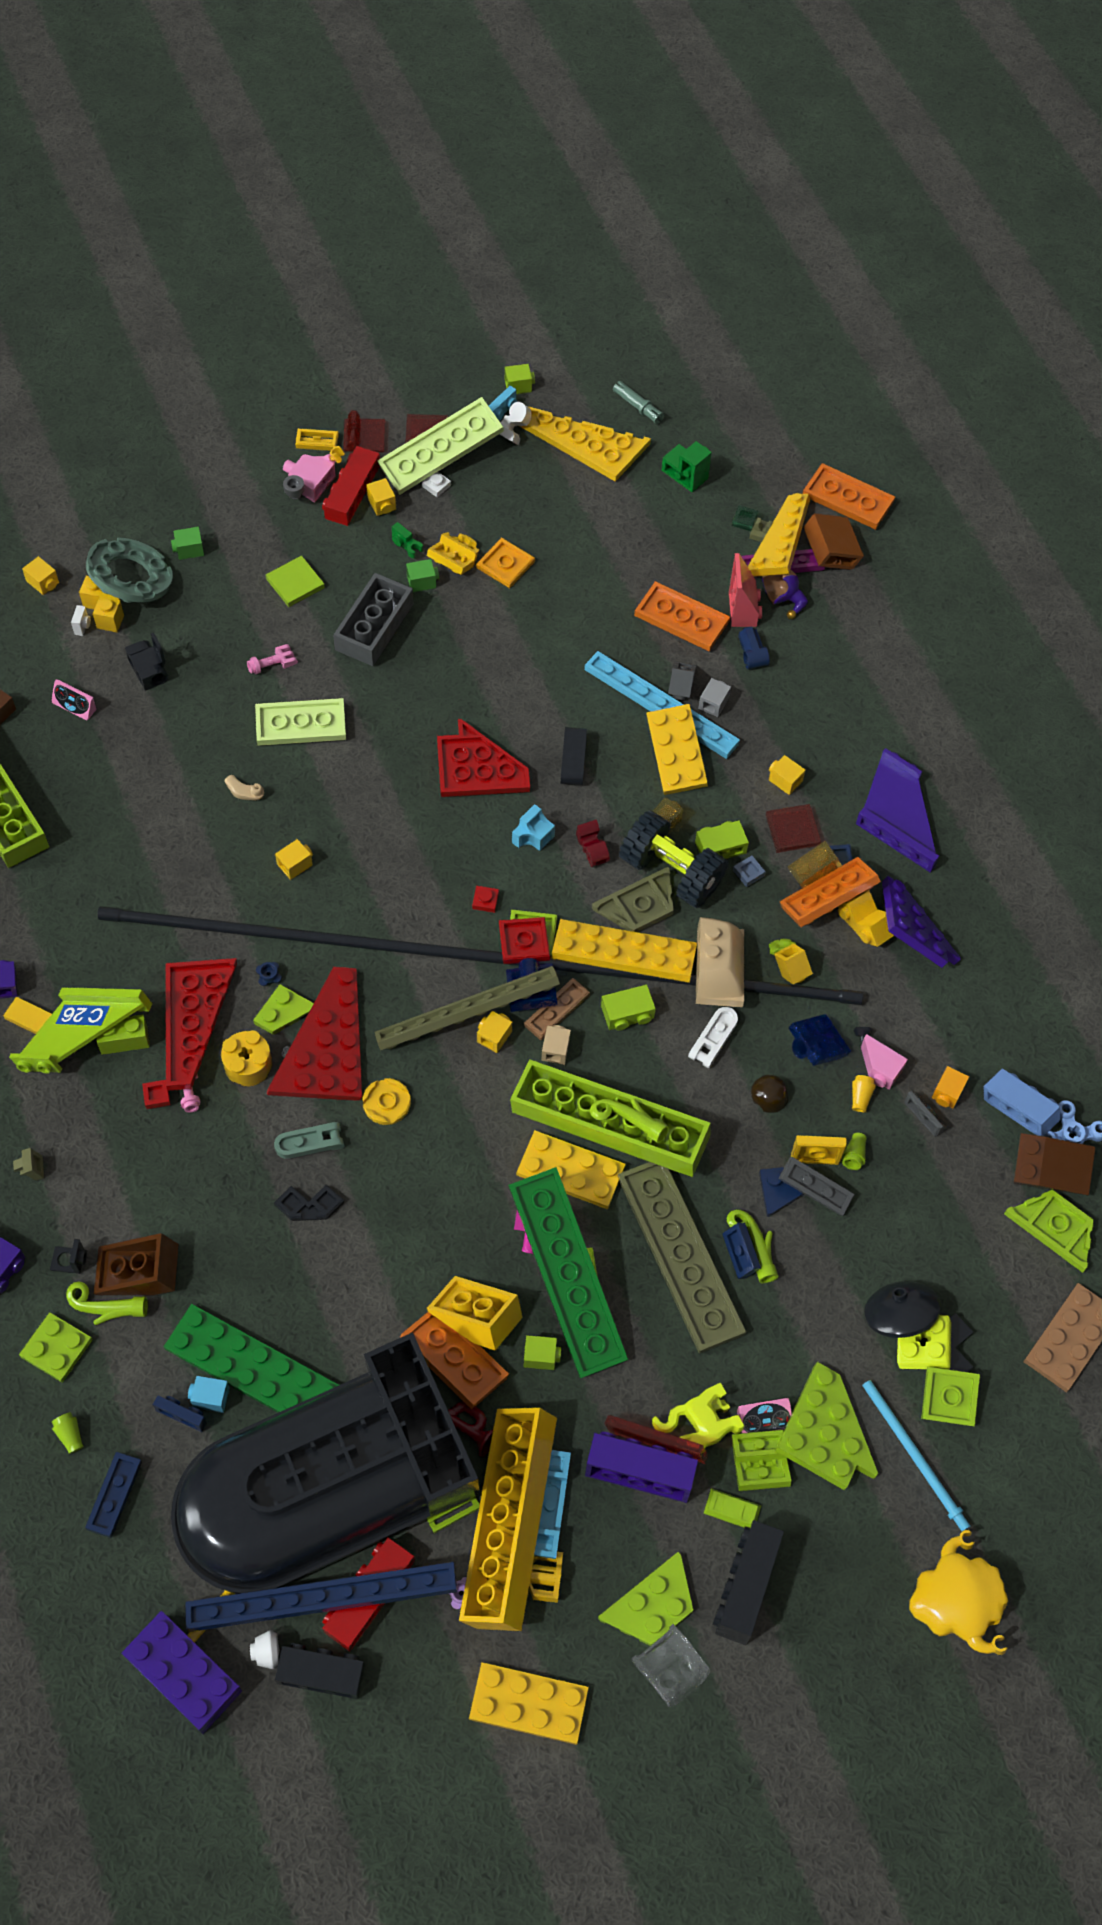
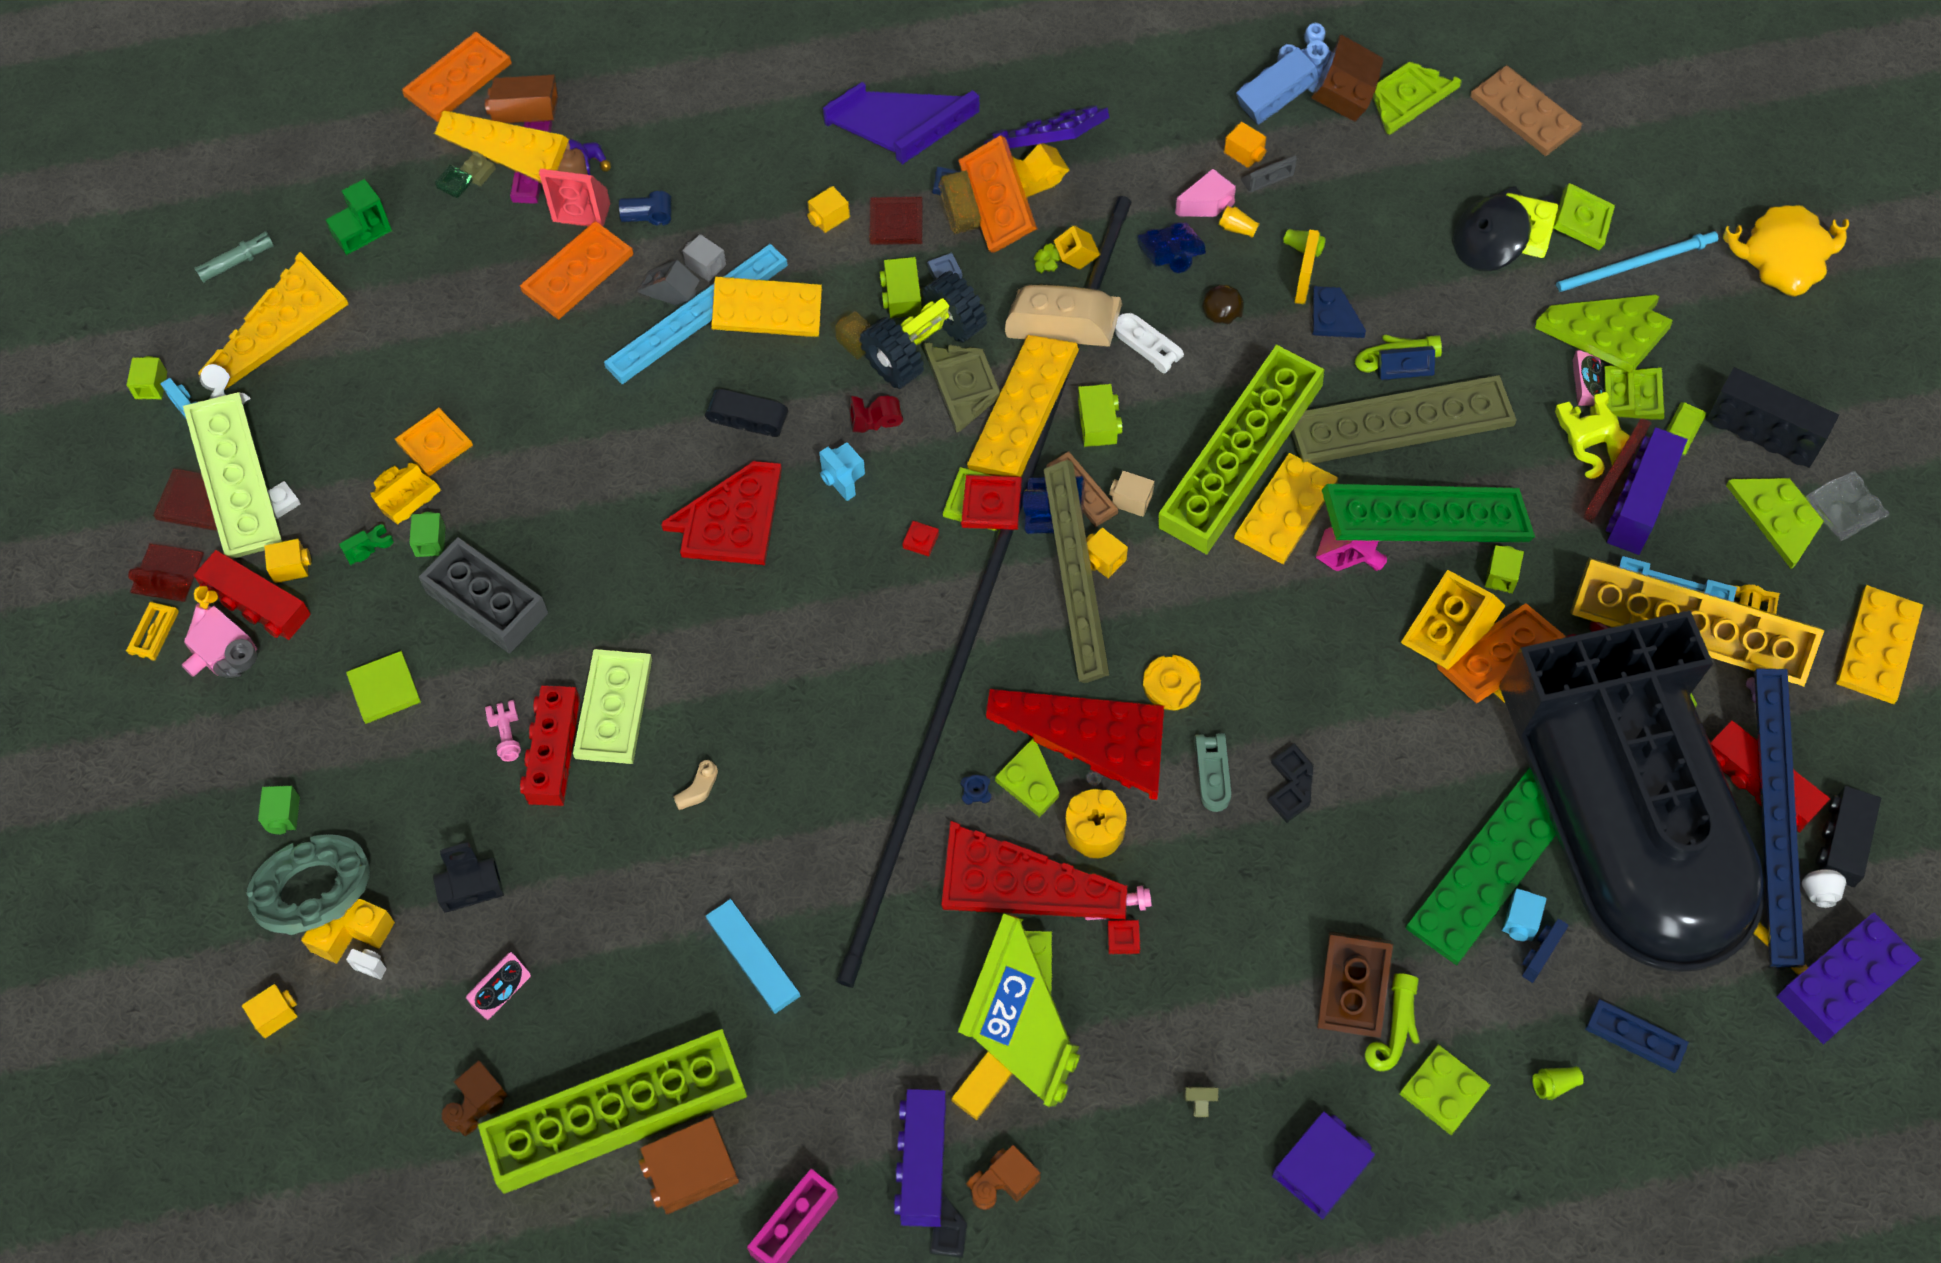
camera: 75 degrees left, 0 degrees up
(77, 1258) = (1336, 1051): black bracket -> none
(114, 850) = (752, 956): none -> medium azure tile
(261, 688) = (551, 745): none -> red brick
(294, 858) = (820, 737): yellow brick -> none
(654, 1129) = (1256, 412): lime plant -> none
(816, 1186) = (1345, 279): dark grey plate -> none
(862, 1031) = (1164, 209): black rock -> none

